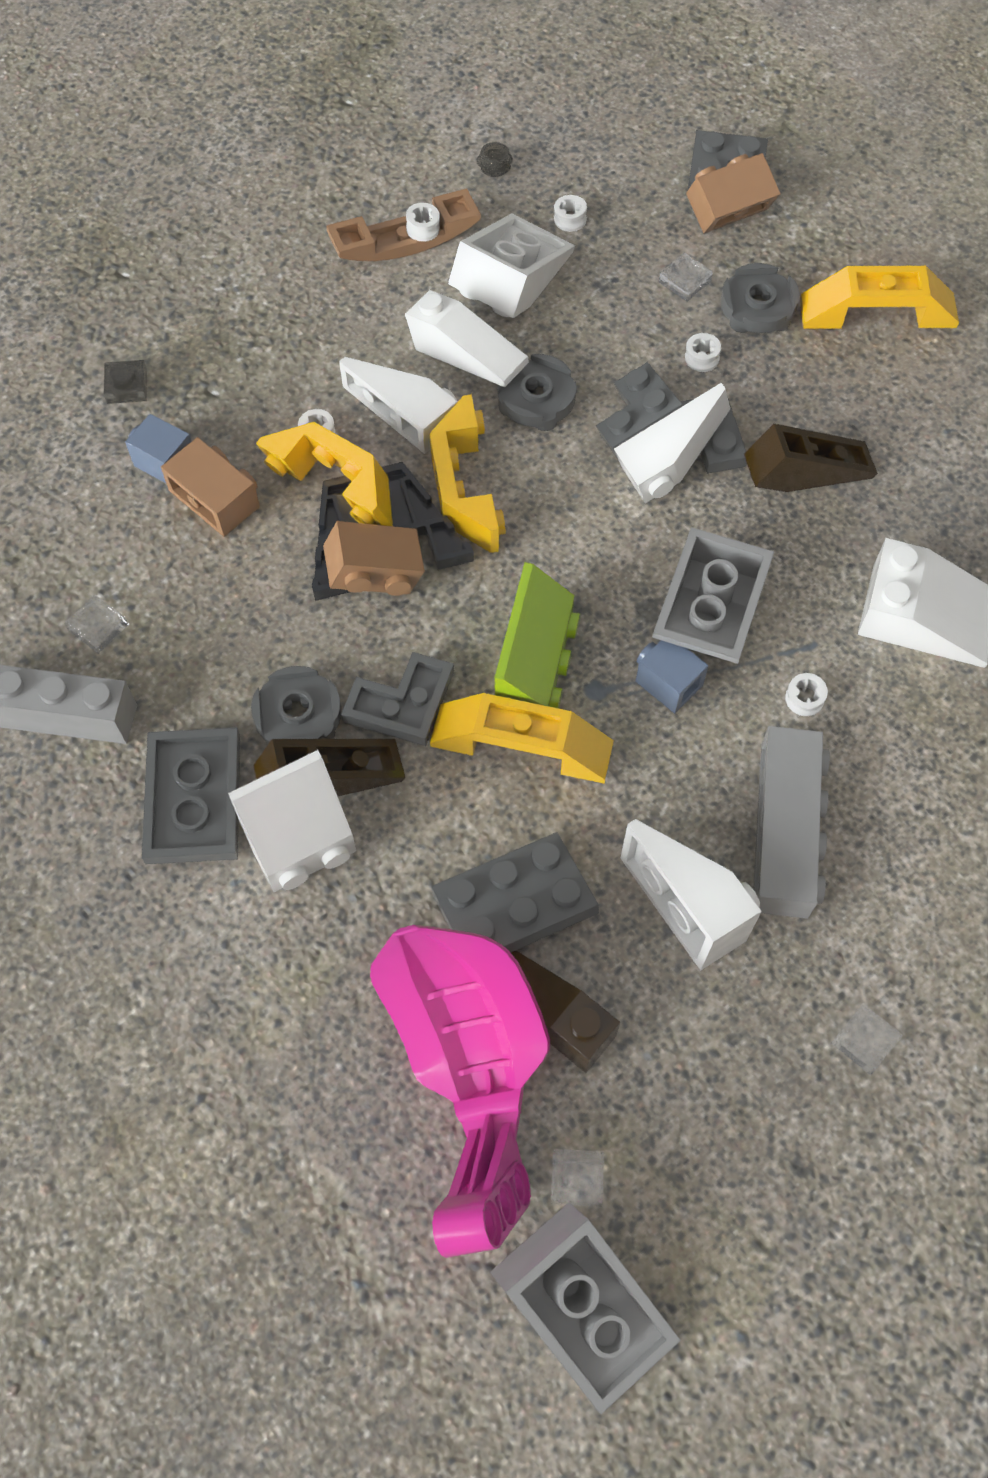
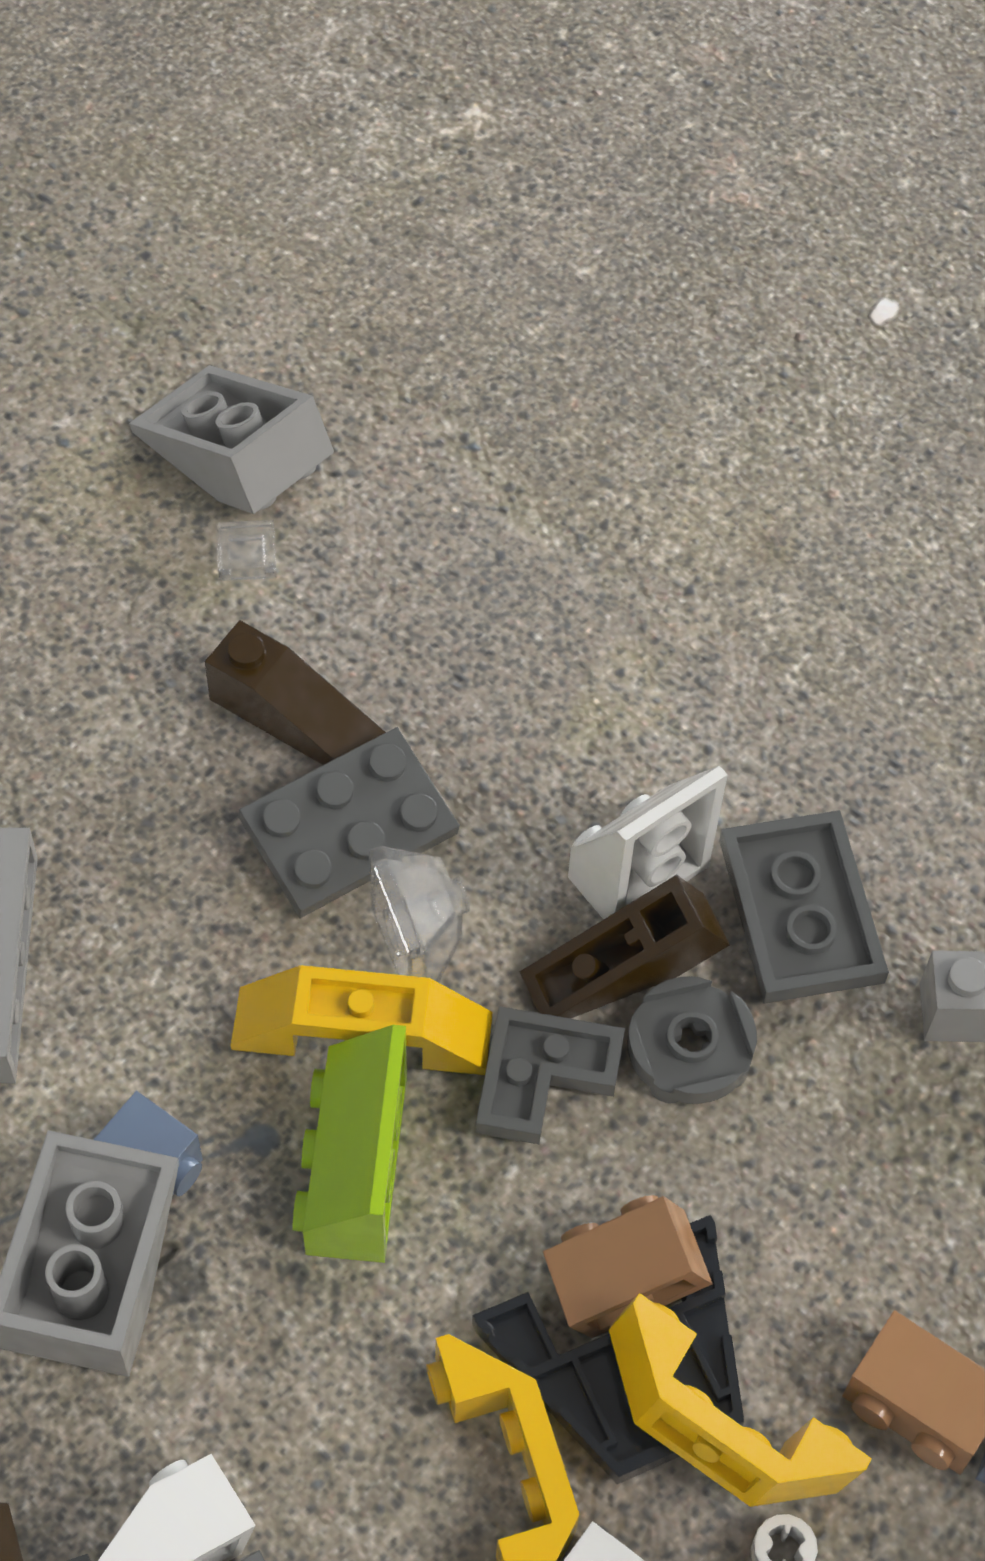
camera: 170 degrees right, 5 degrees down
(472, 799) = (416, 910): none -> clear slope
(477, 1042) = (338, 519): dark pink piece -> none
(692, 893) = (117, 818): white slope -> none

